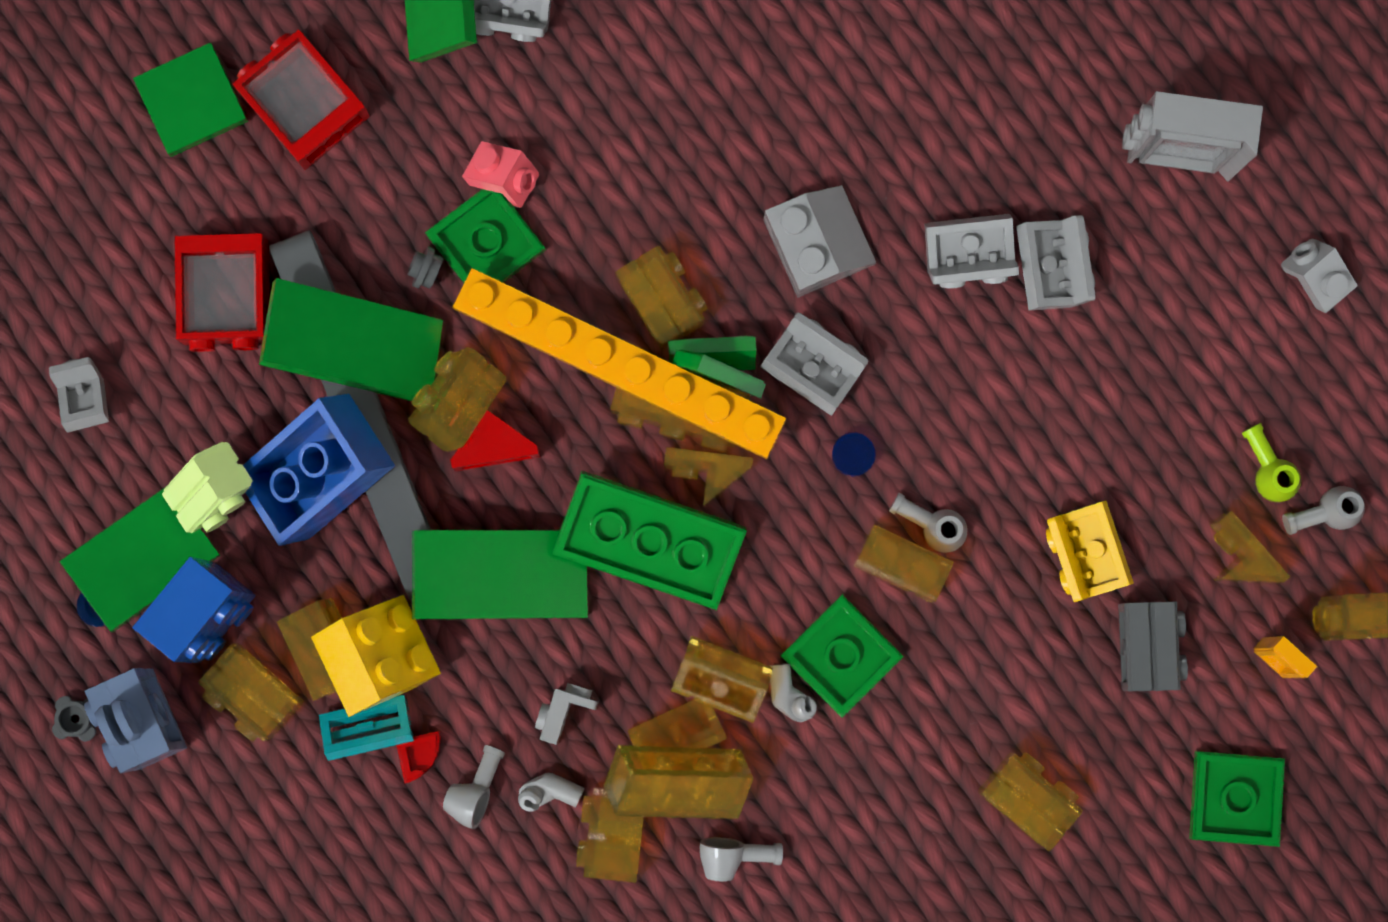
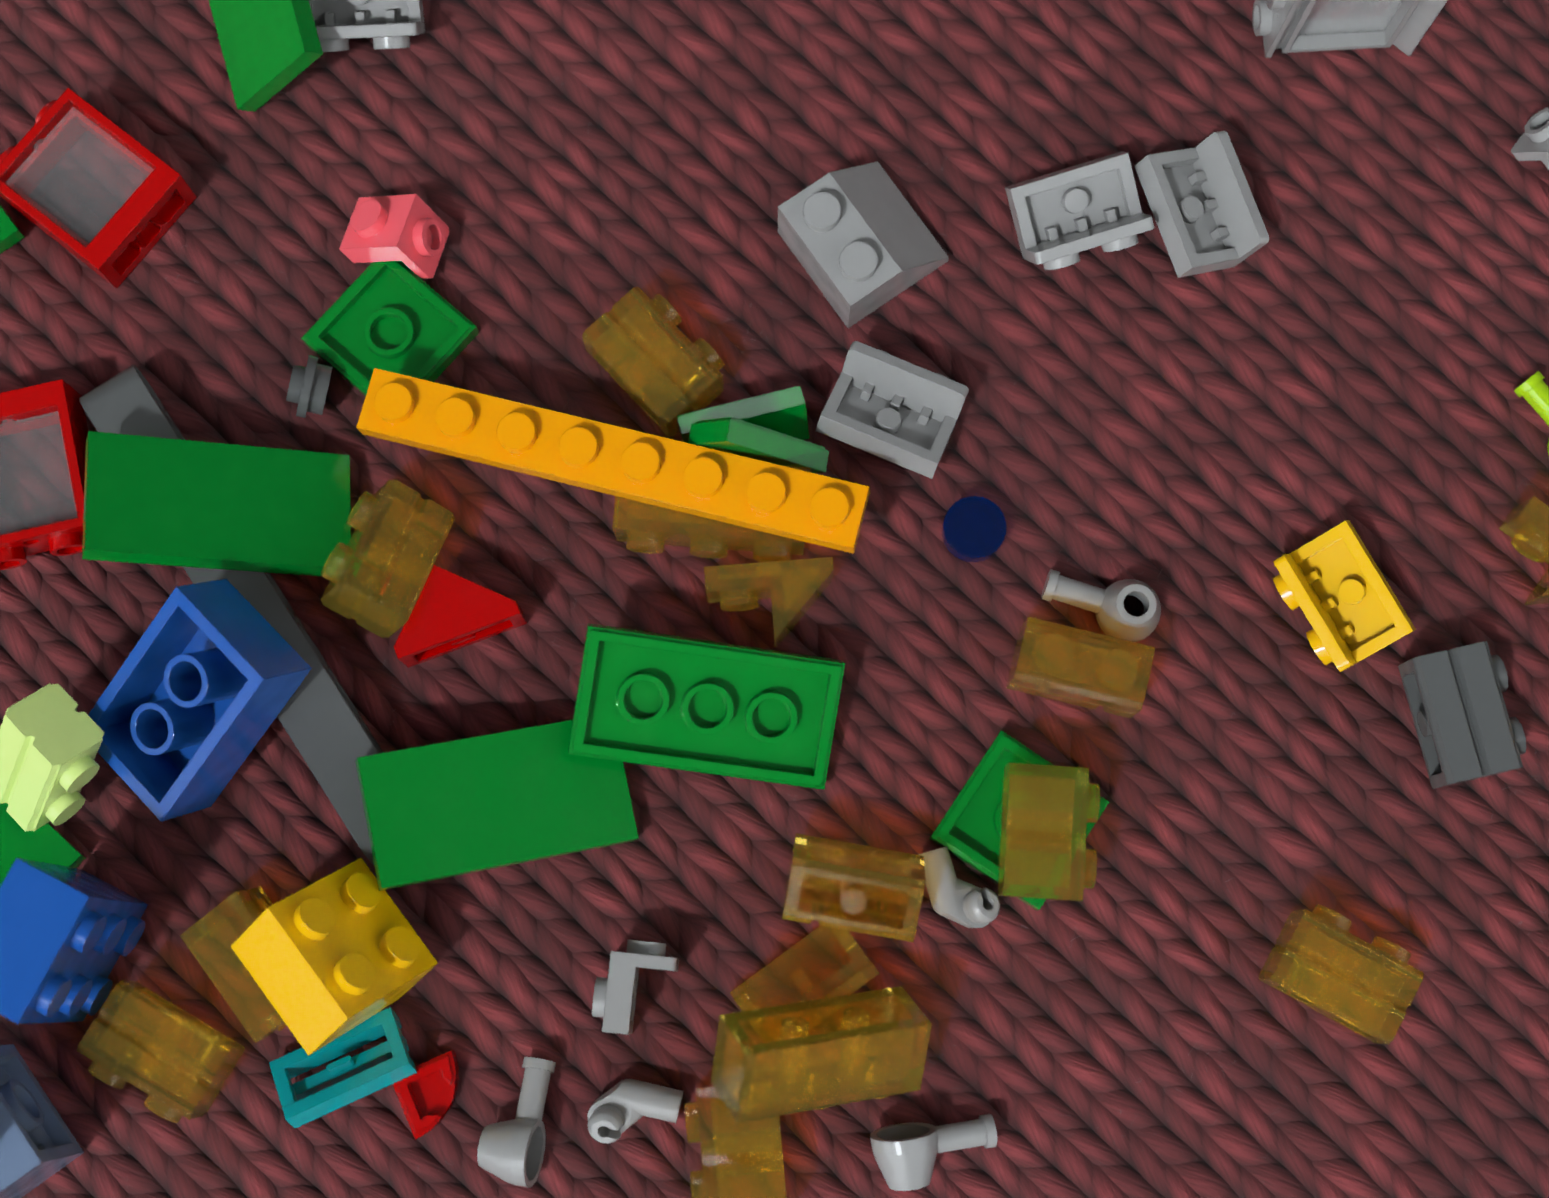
camera: 10 degrees left, 5 degrees down
(855, 669) = (1046, 832): none -> clear yellow brick

